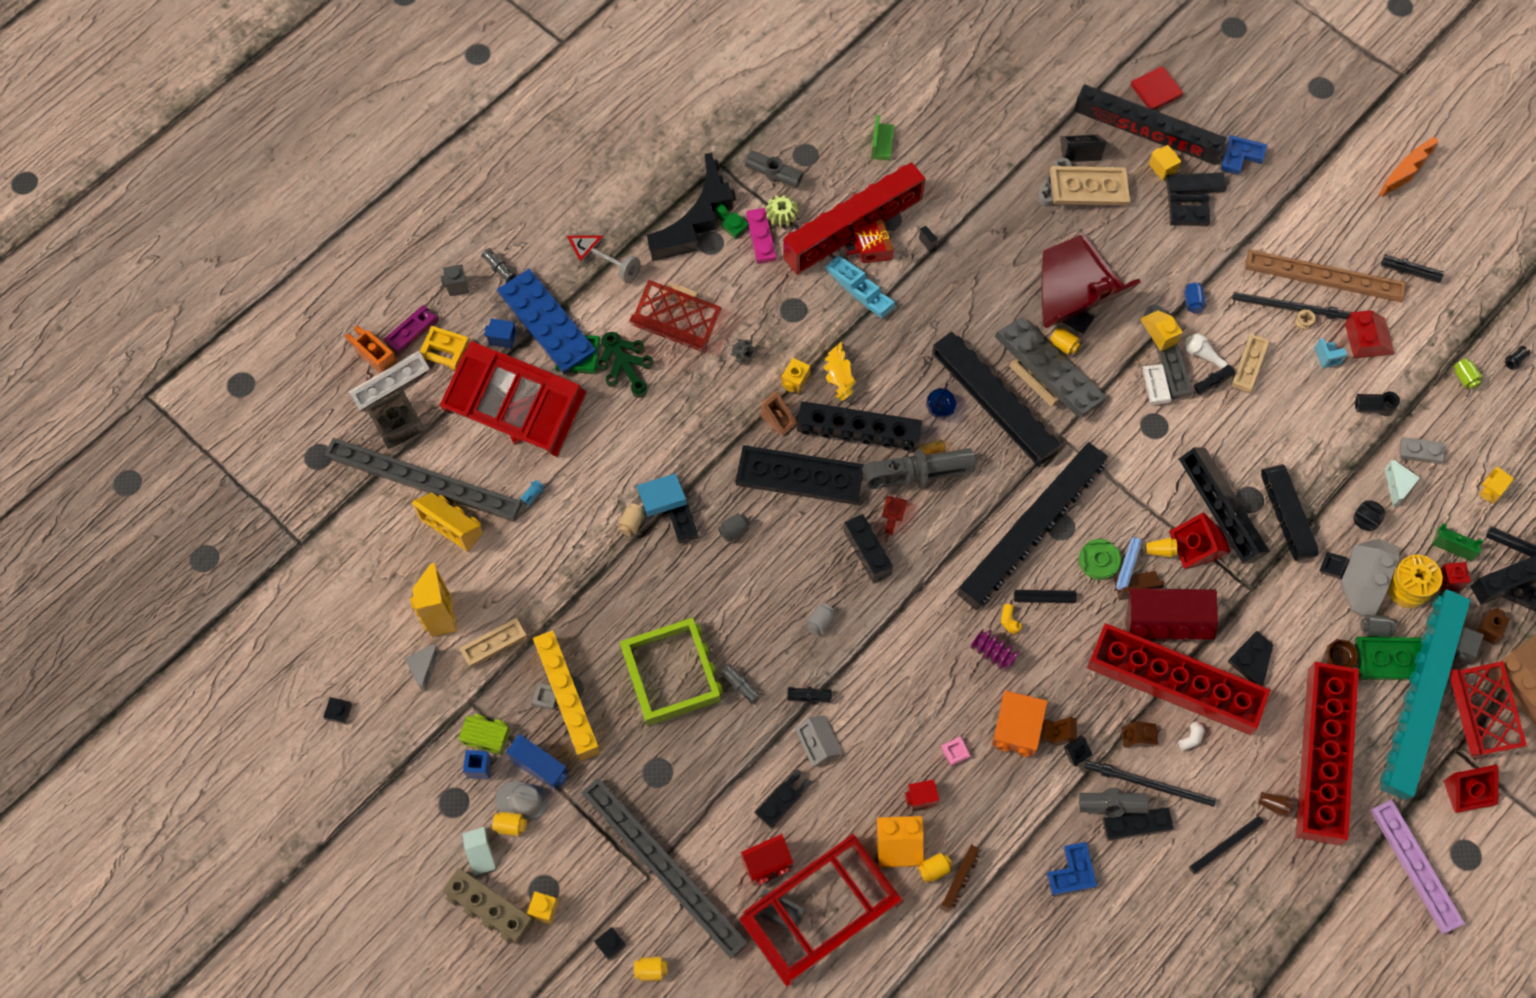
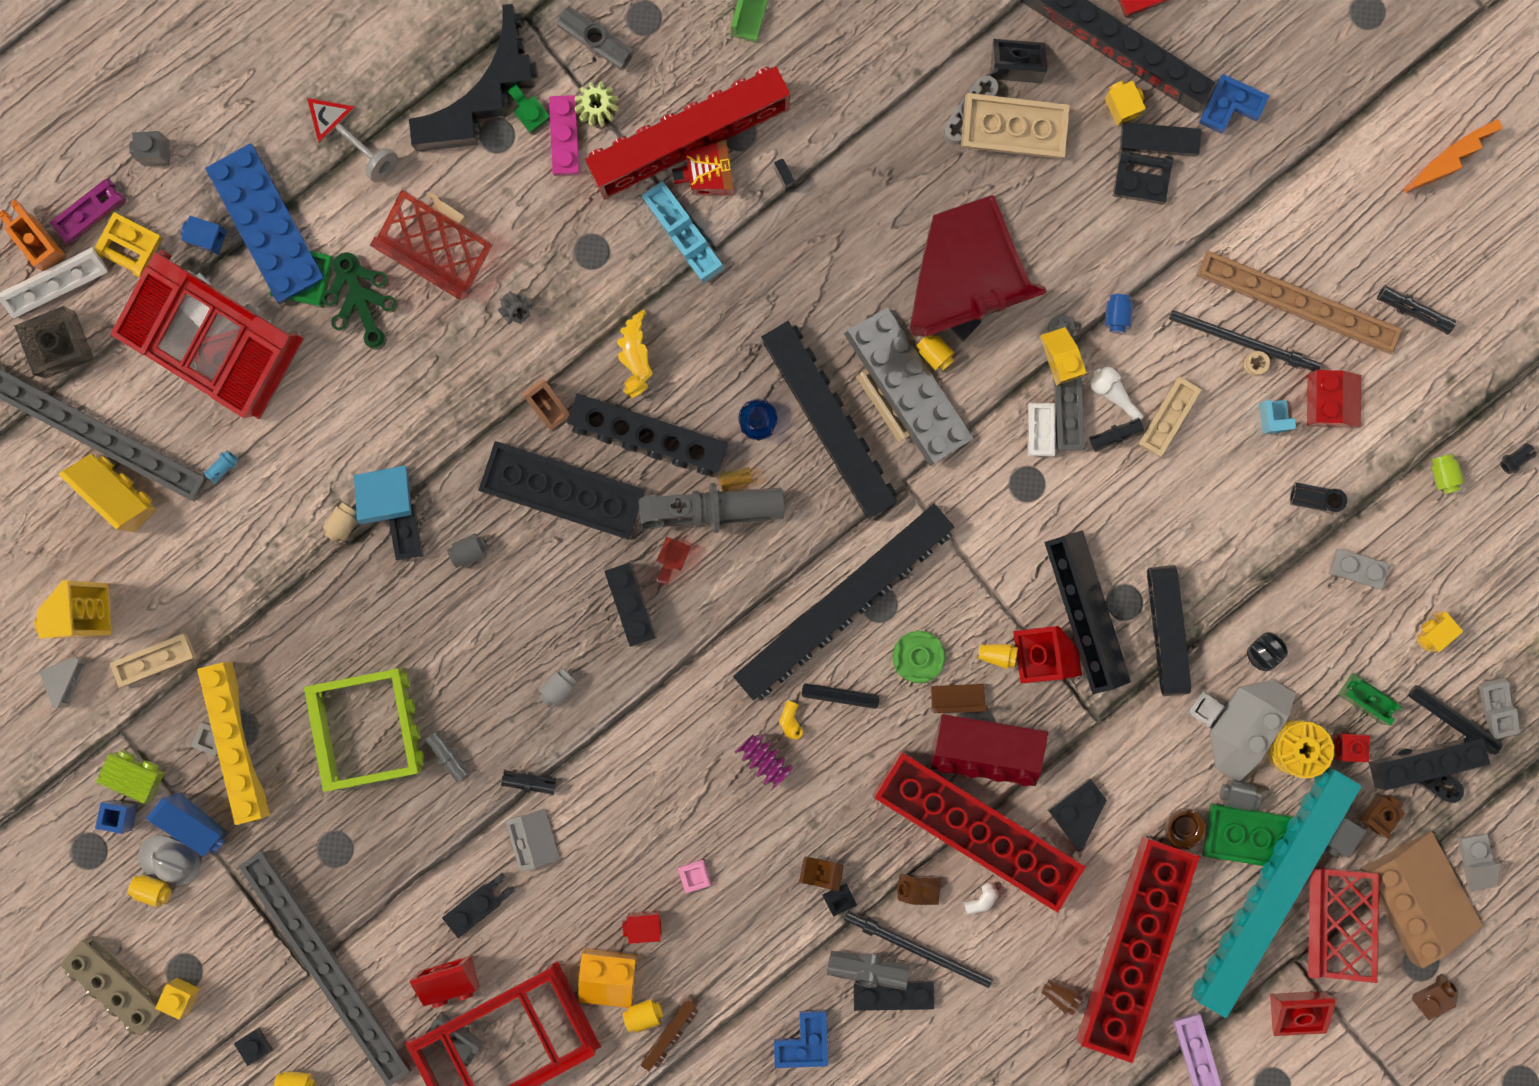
camera: 10 degrees right, 20 degrees up
(479, 851) = (110, 916): light aqua slope -> none
(498, 265) = (210, 132): dark grey pin -> none
(795, 376) = (577, 352): yellow brick -> none
(1019, 723) = (775, 856): orange panel -> none
(1129, 563) = (952, 671): light blue axle -> none
(1226, 844) = (992, 1035): black bar -> none
(1399, 481) = (1318, 611): light aqua slope -> none

